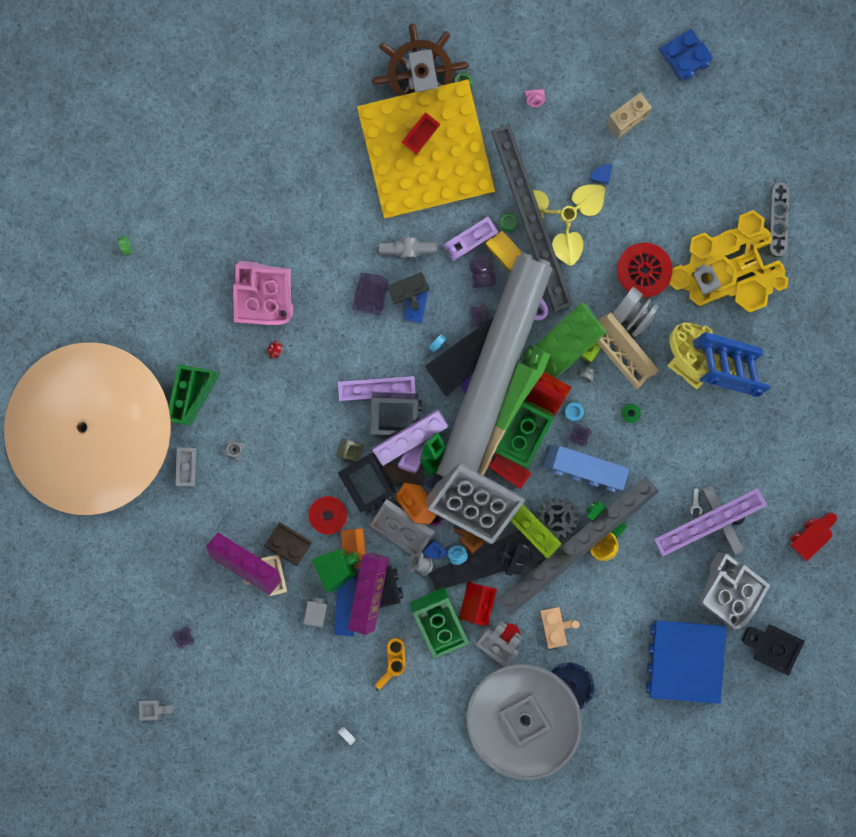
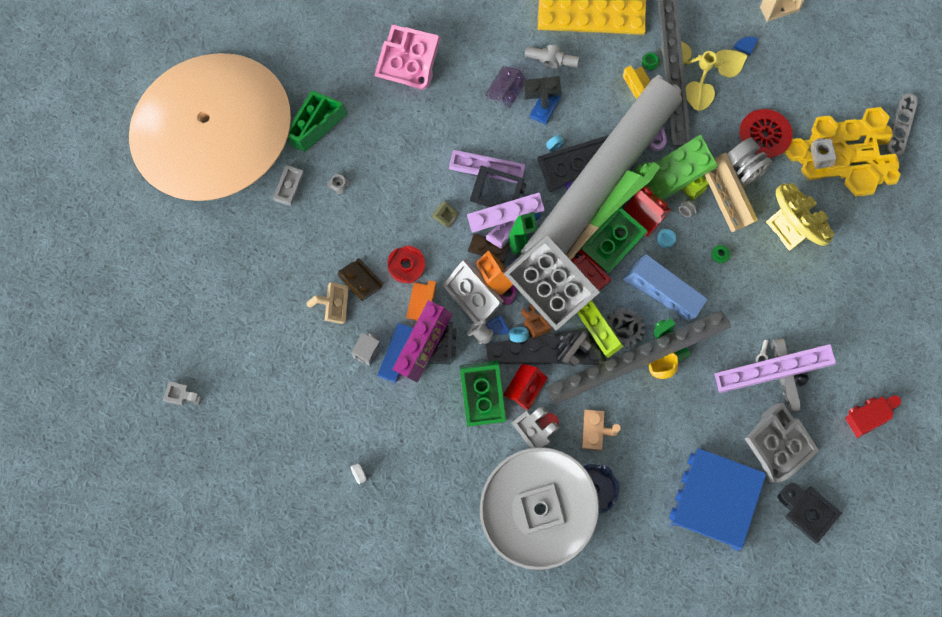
camera: 15 degrees right, 15 degrees down
(188, 638) = (232, 332): clear purple plate -> none
(243, 563) = (312, 279): magenta brick -> none
(274, 349) = (403, 107): red plate -> none
(336, 568) = (398, 311): green torso -> none
(381, 474) = (446, 227): black window -> none
(392, 656) = (428, 411): light orange beam -> none
(471, 238) = (611, 64): lavender plate -> none
(474, 311) = (596, 126): clear purple plate -> none
(482, 272) = (614, 93): clear purple wheel -> none
(585, 434) = (666, 254): clear purple plate -> none
(738, 352) = (825, 215): blue fence -> none

